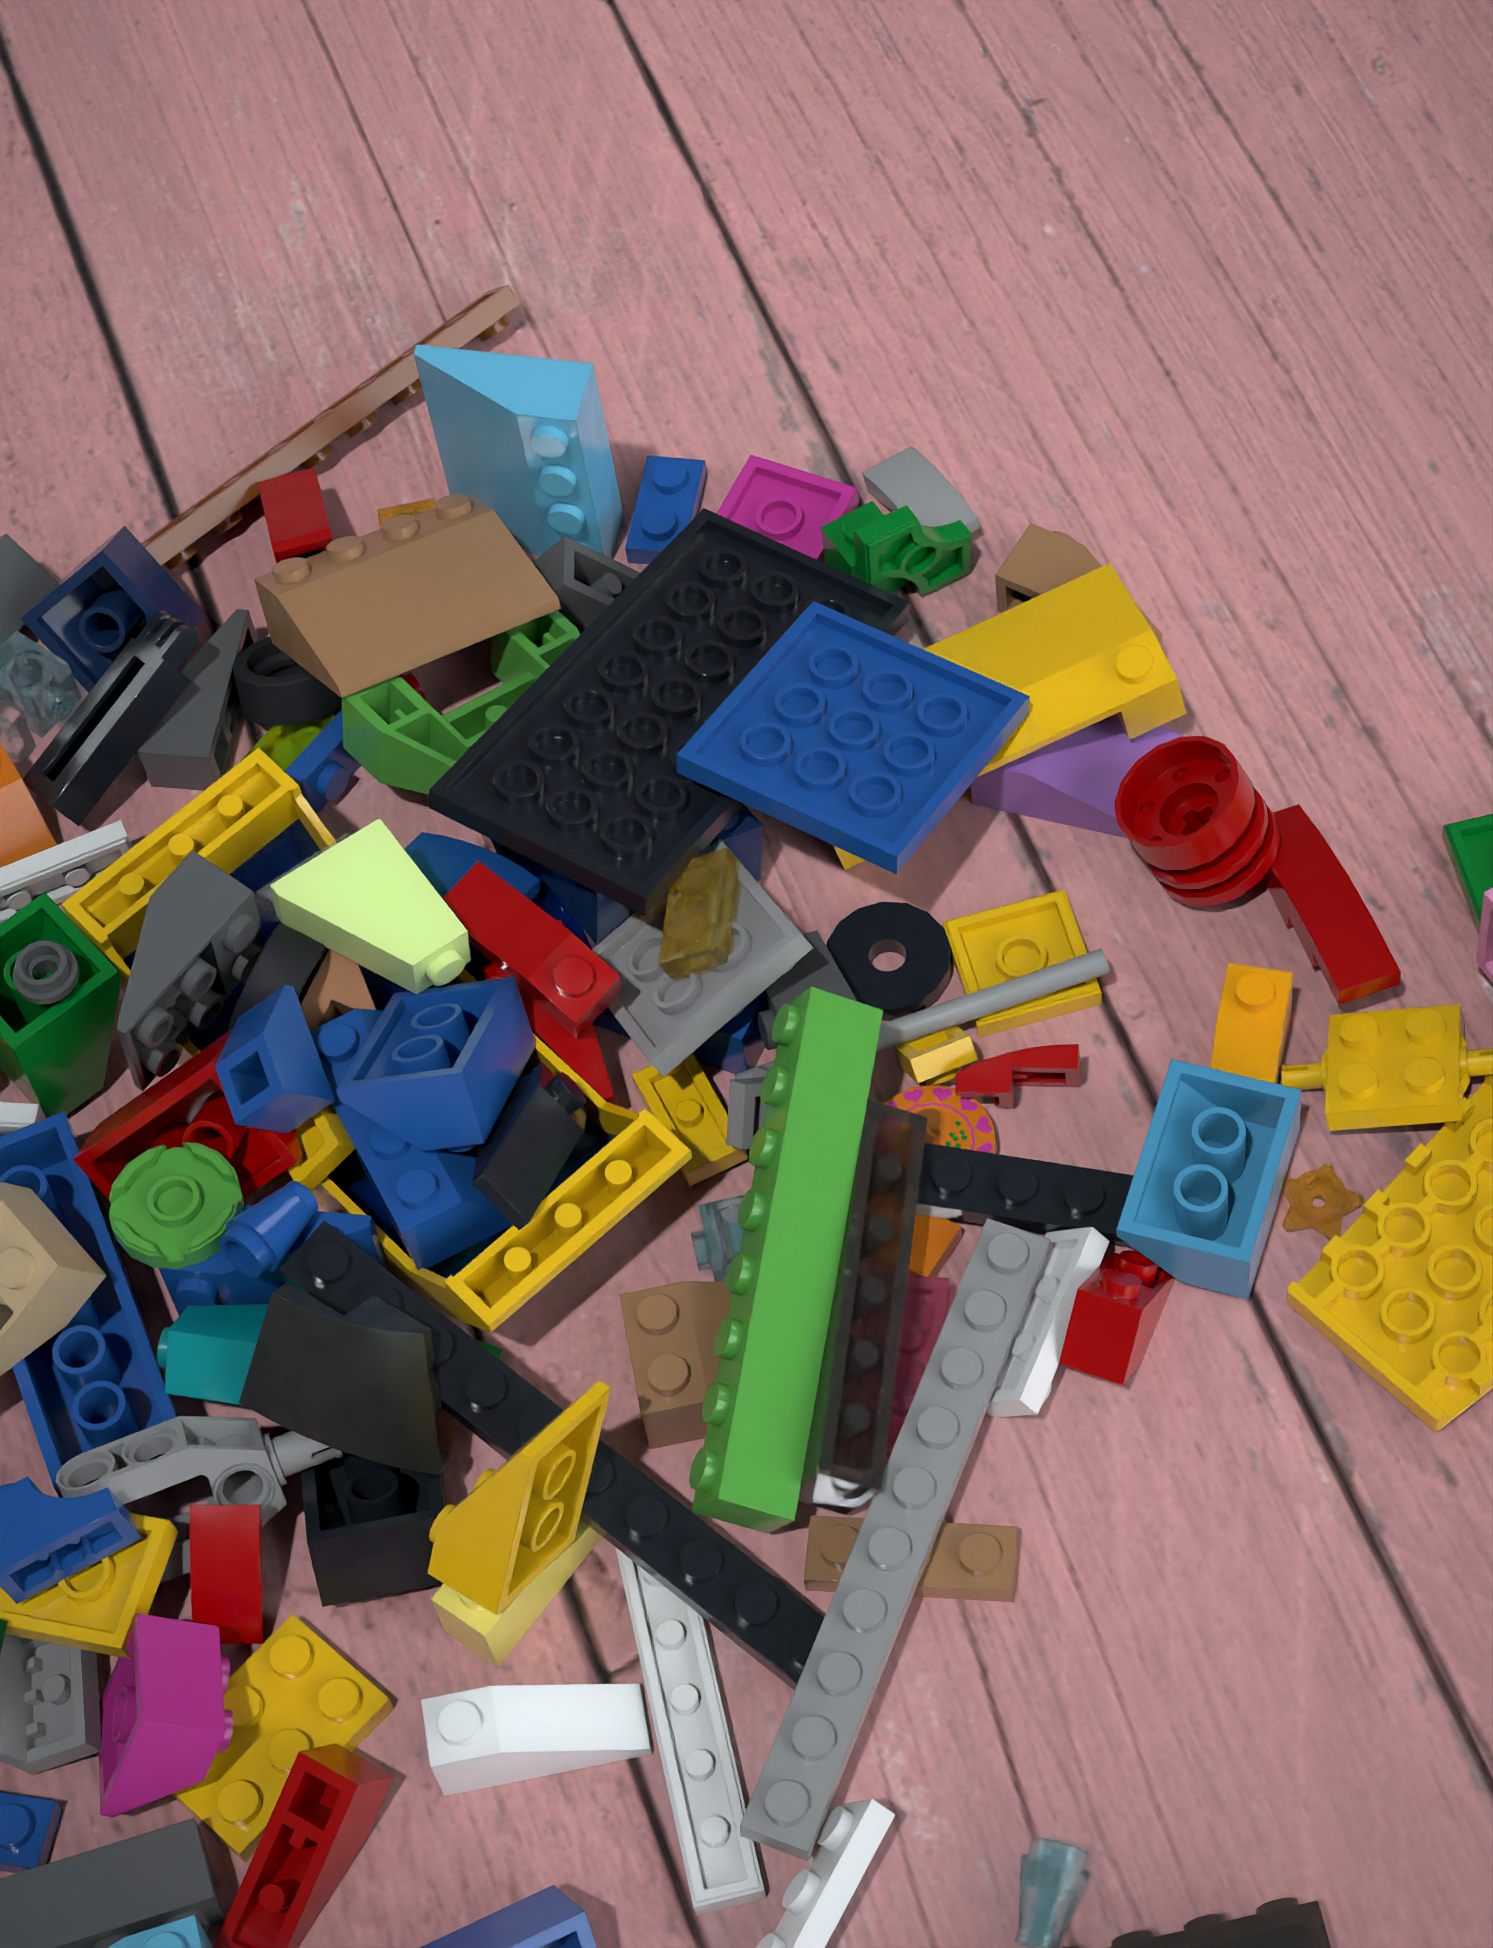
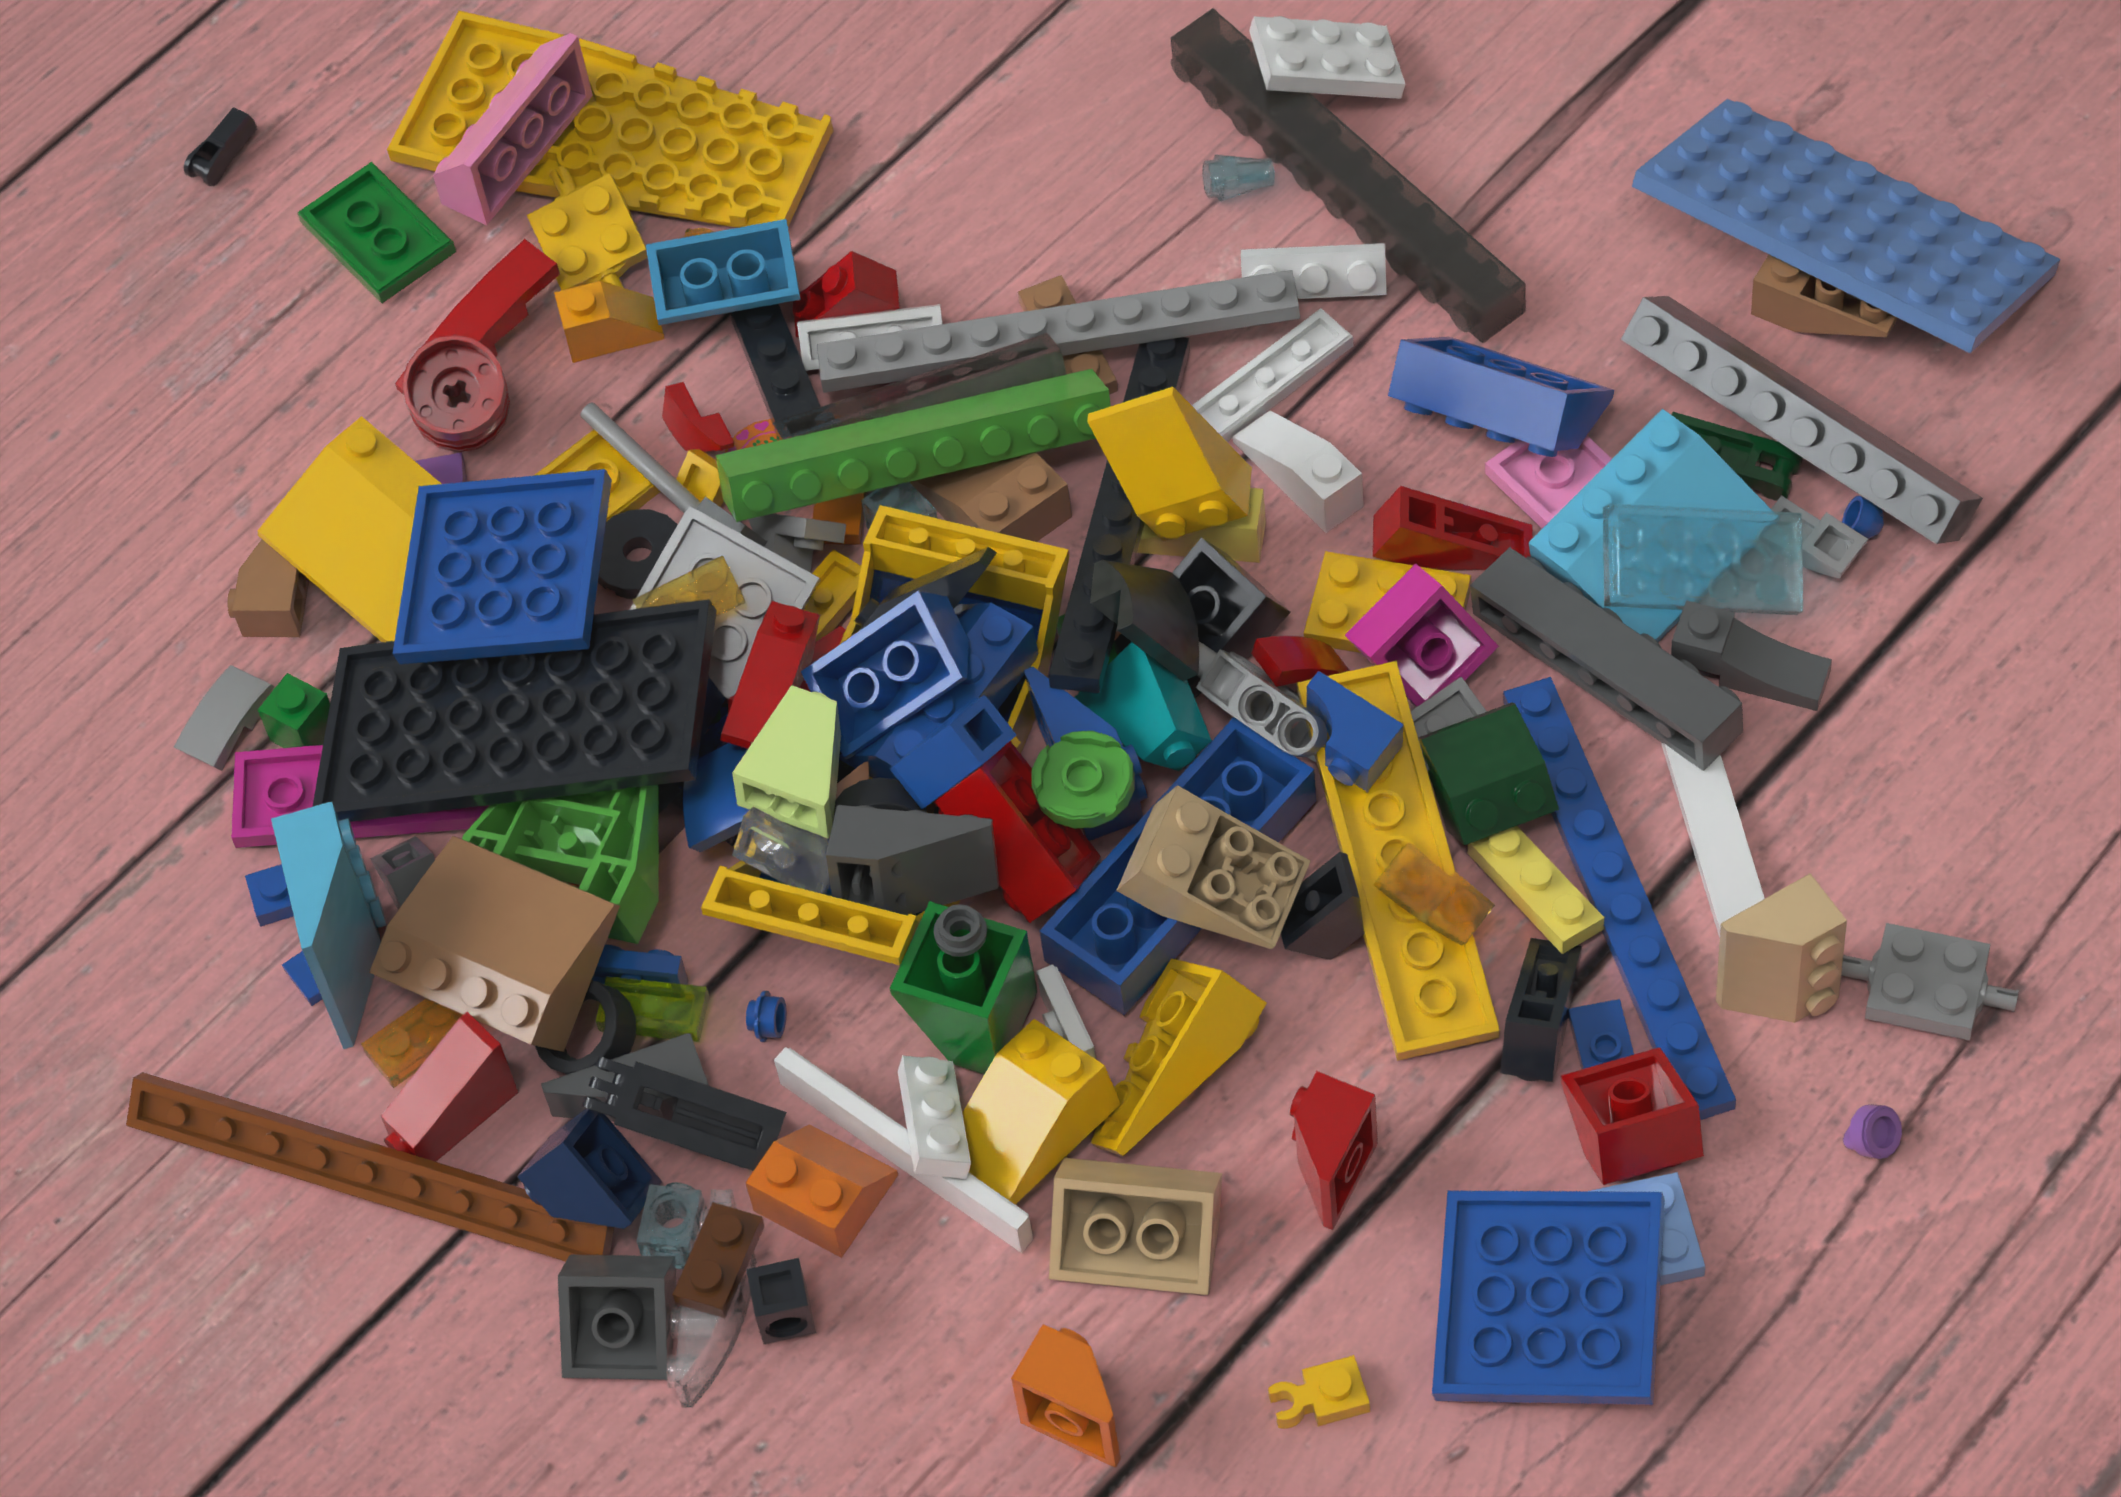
camera: 120 degrees left, 0 degrees up
(266, 1231) = (1073, 702): blue cone -> none
(906, 549) = (291, 657): green tile -> none

